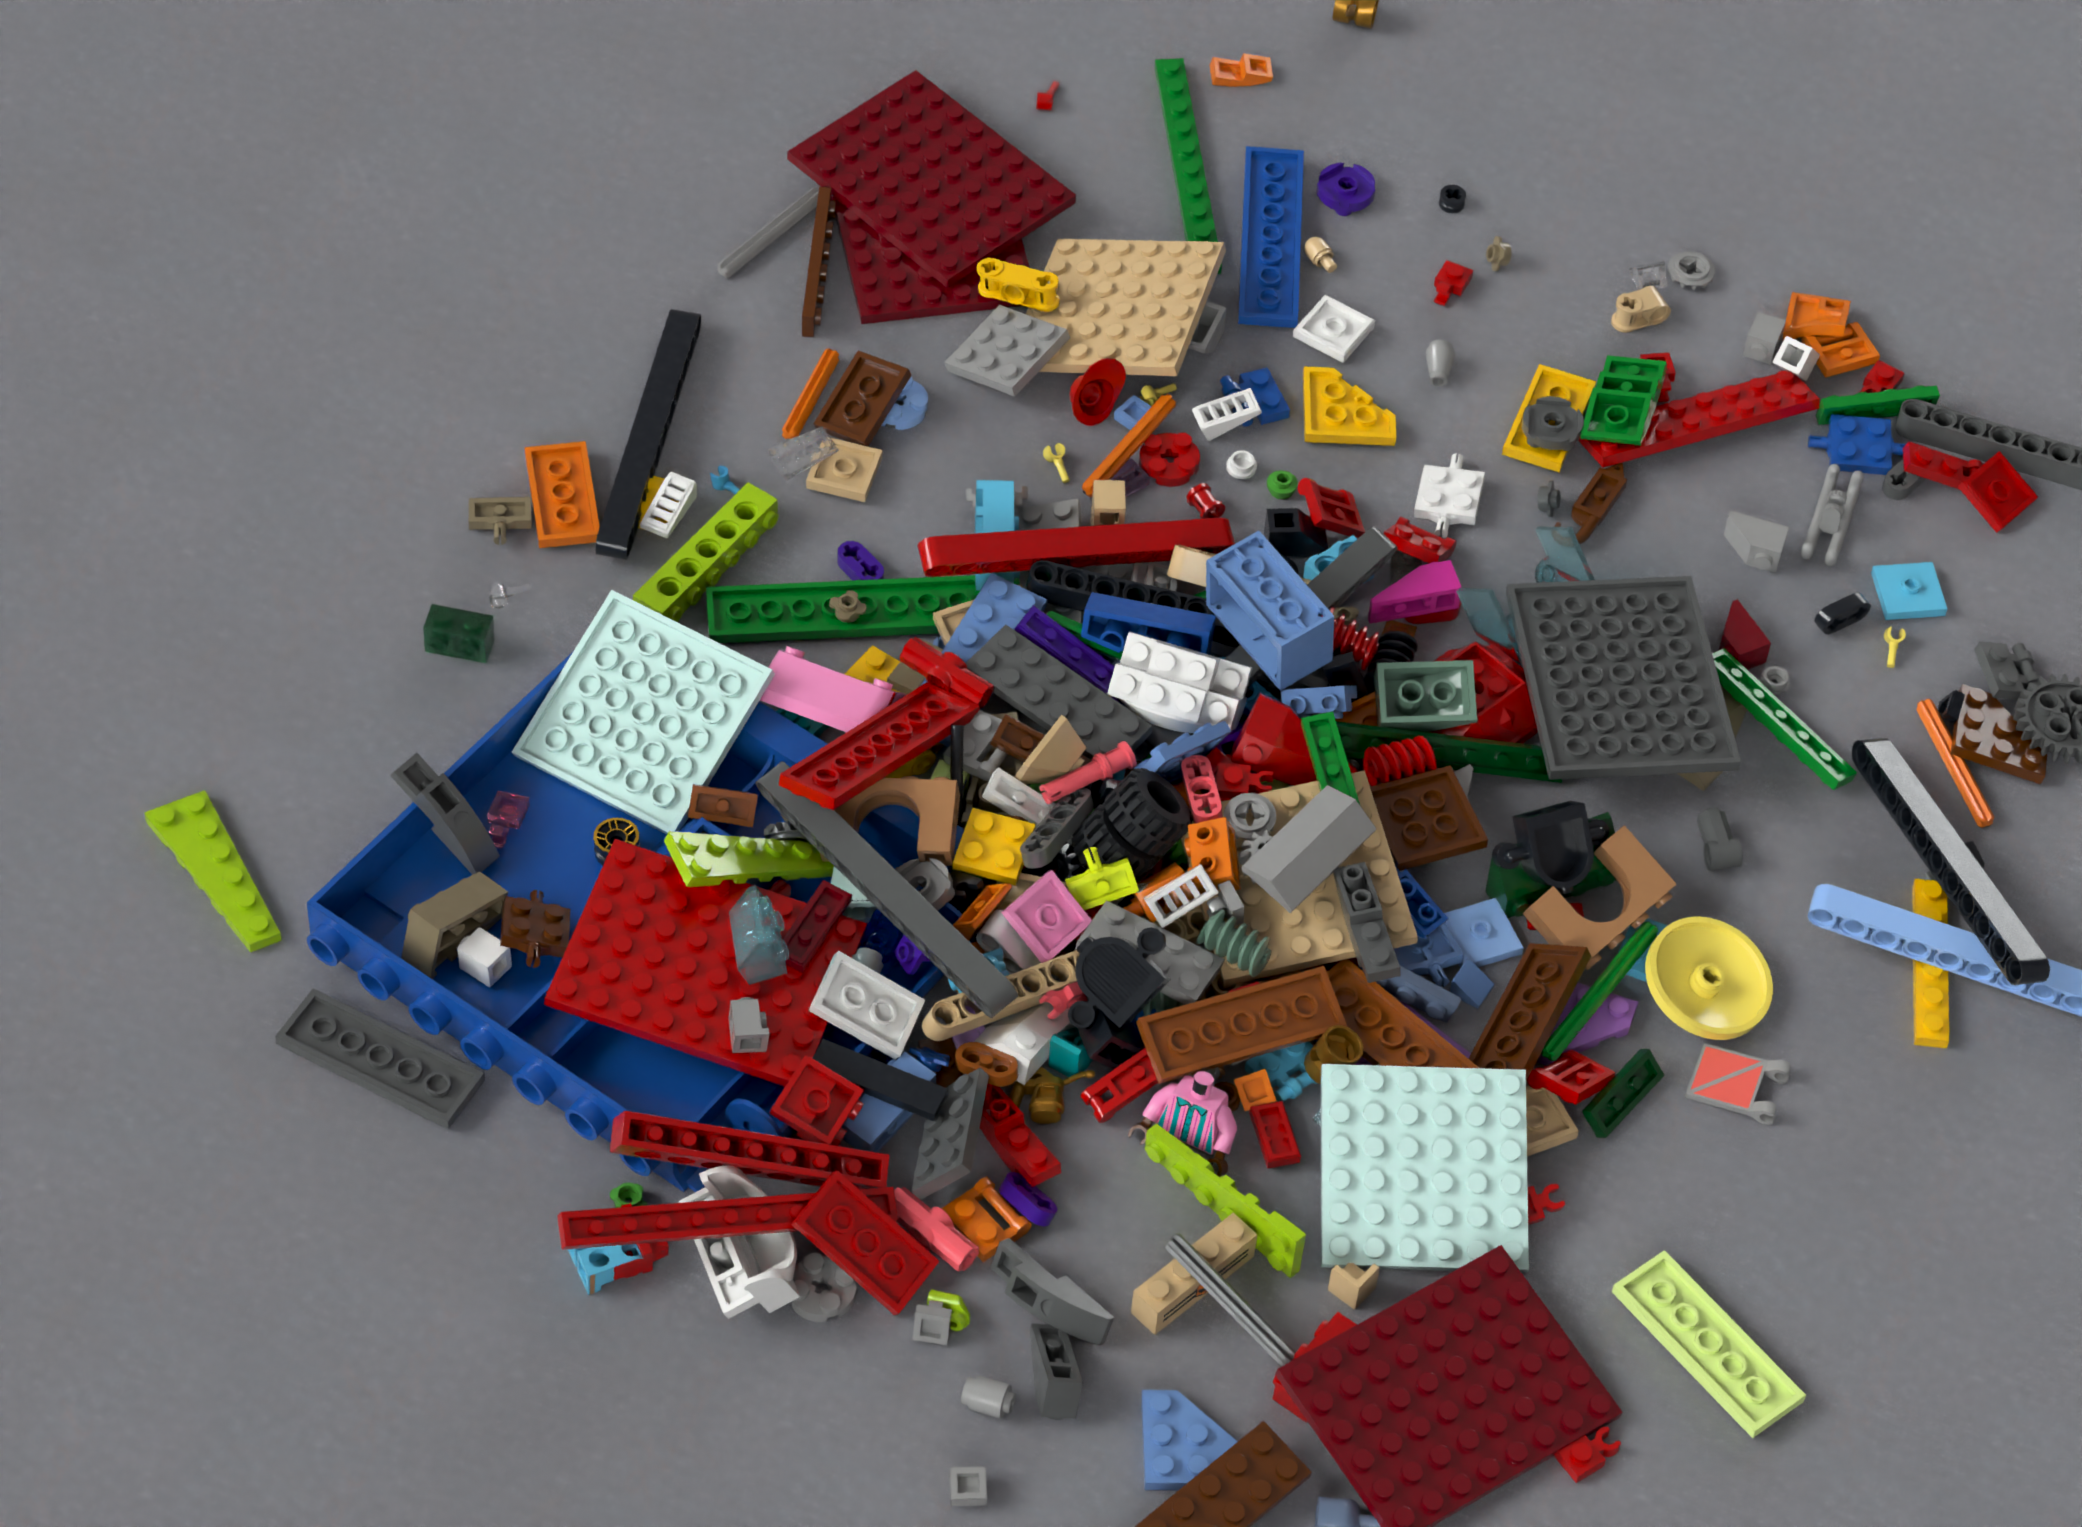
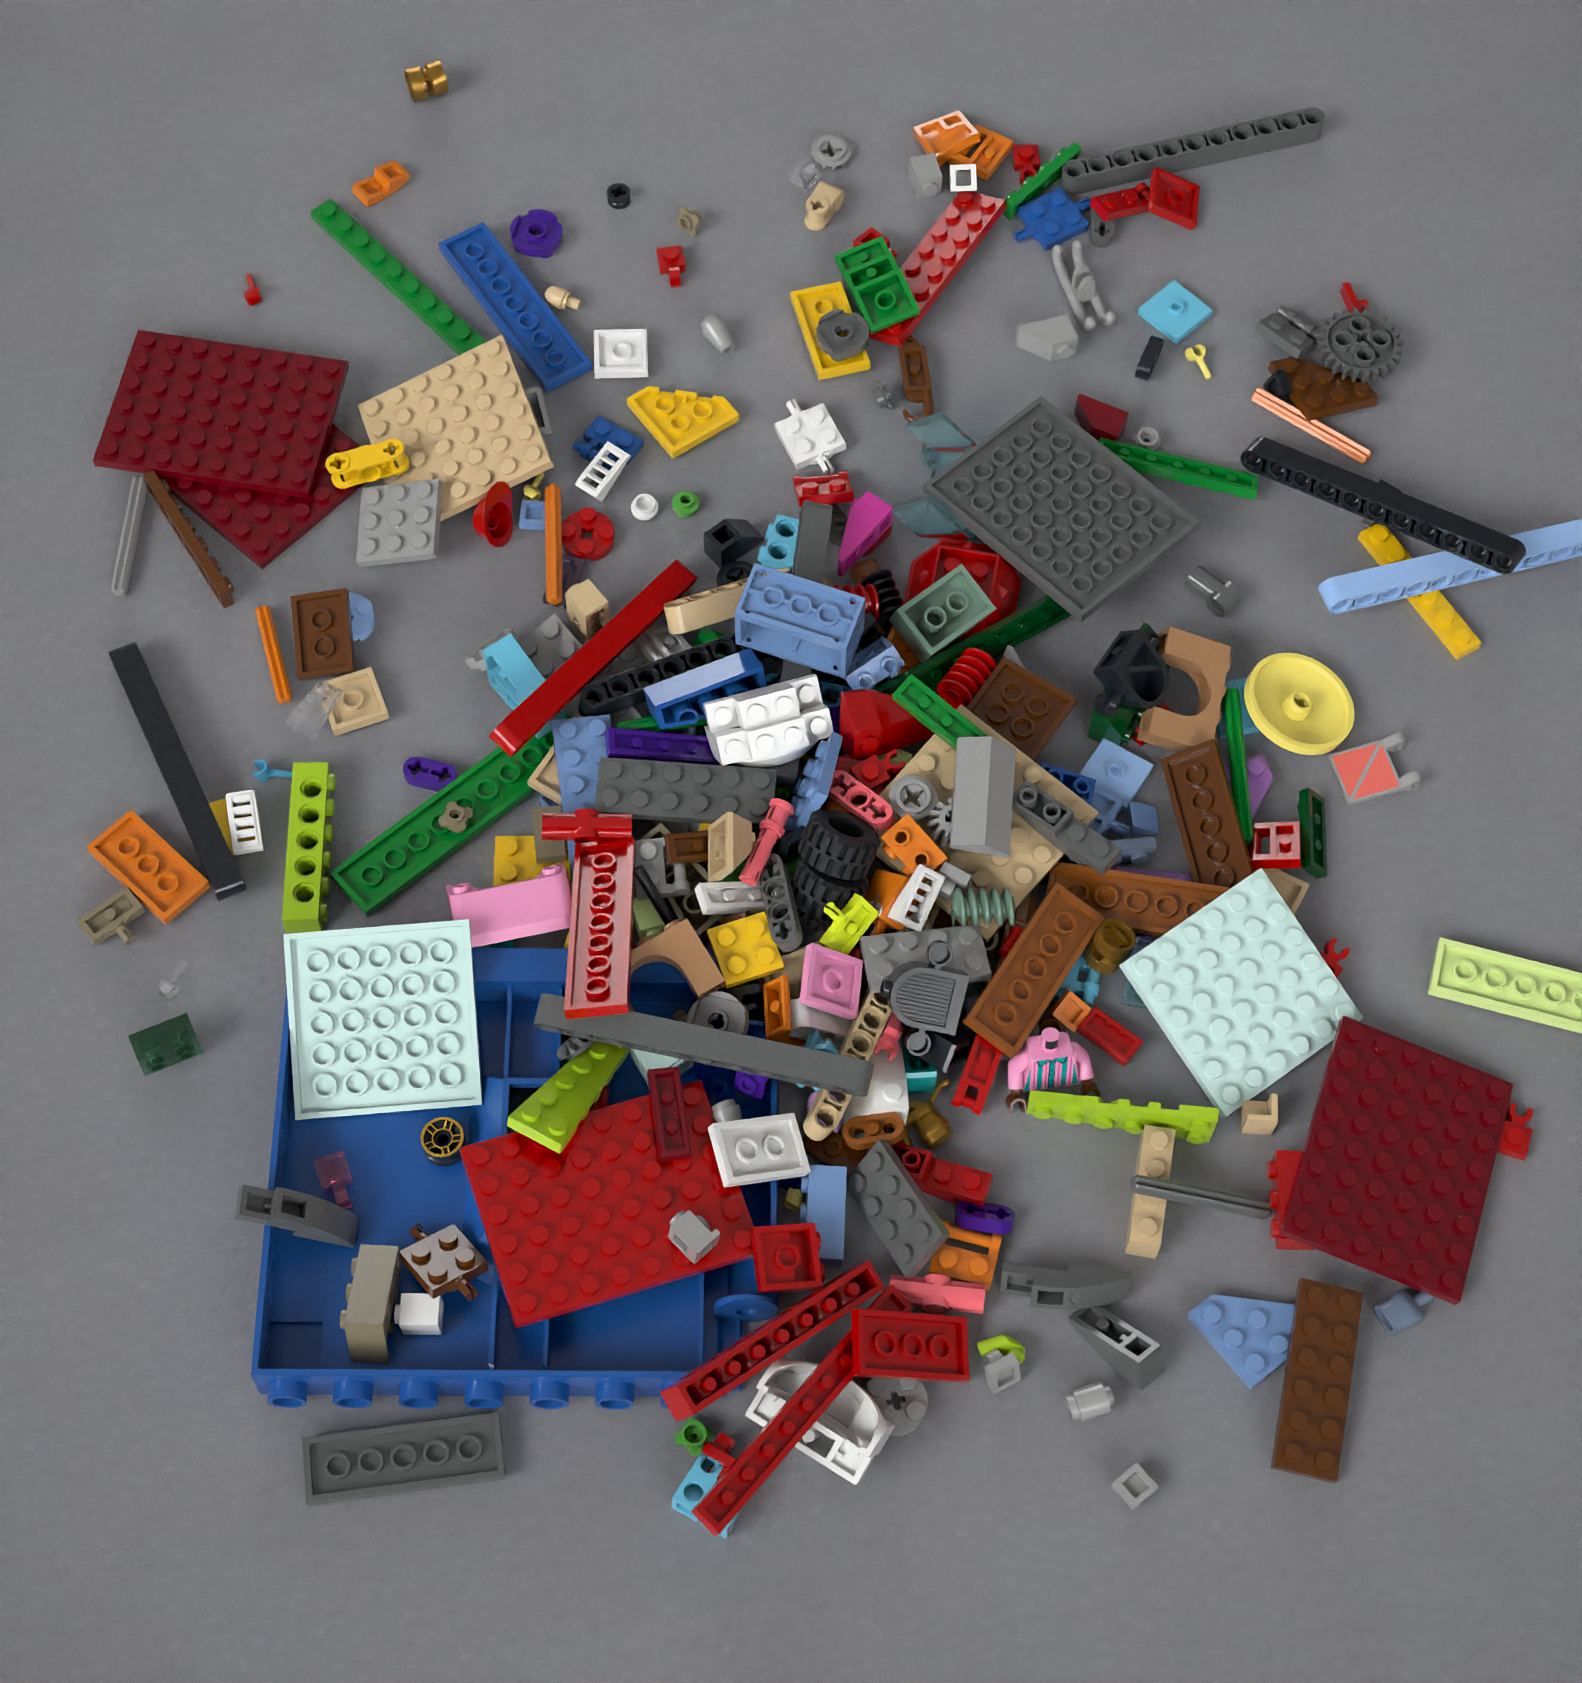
camera: 35 degrees left, 10 degrees up
(208, 854) = (110, 1377): lime wing -> none
(722, 805) = (506, 1055): dark orange plate -> none
(758, 937) = (646, 1158): clear light blue slope -> none
(883, 1080) = (813, 1202): black tile -> none
(930, 1058) = (827, 1155): blue plate -> none
(1058, 461) = (505, 587): light yellow hand -> none
(1205, 502) = (645, 555): red bush -> none
(1331, 508) = (746, 506): red plate -> none

